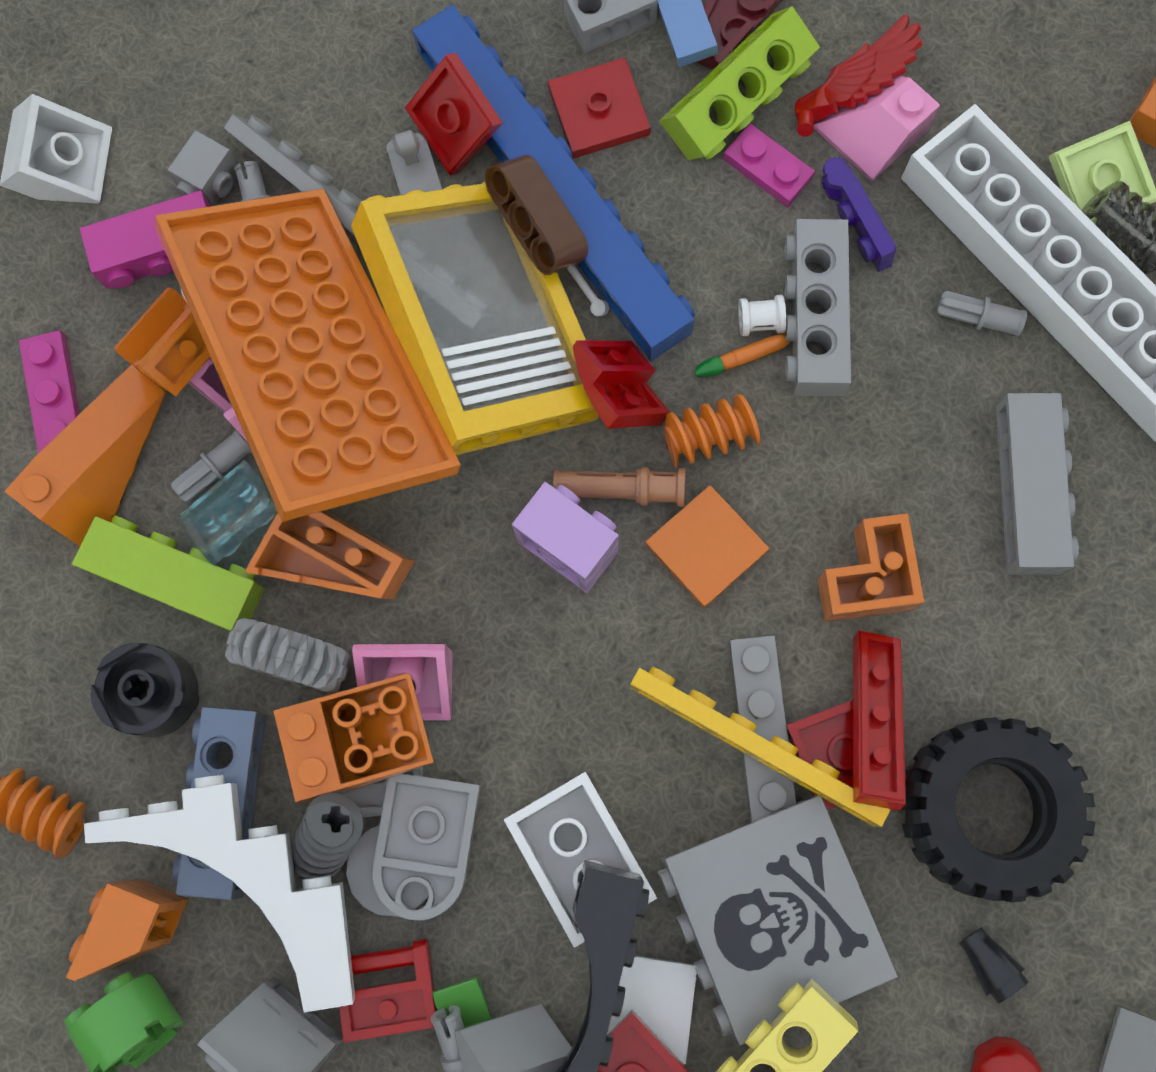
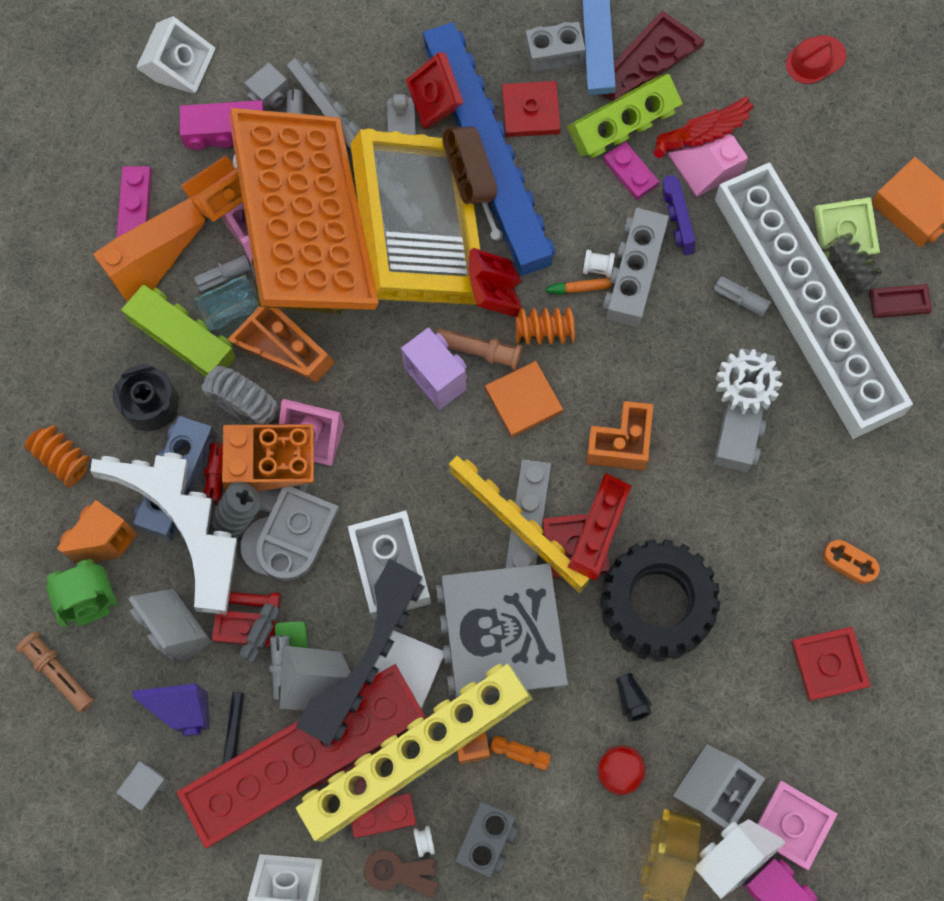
camera: 10 degrees right, 5 degrees down
(278, 782) = (214, 473): none -> red pin
(413, 1017) = (259, 633): none -> dark grey axle
(1022, 430) = (748, 394): none -> white gear

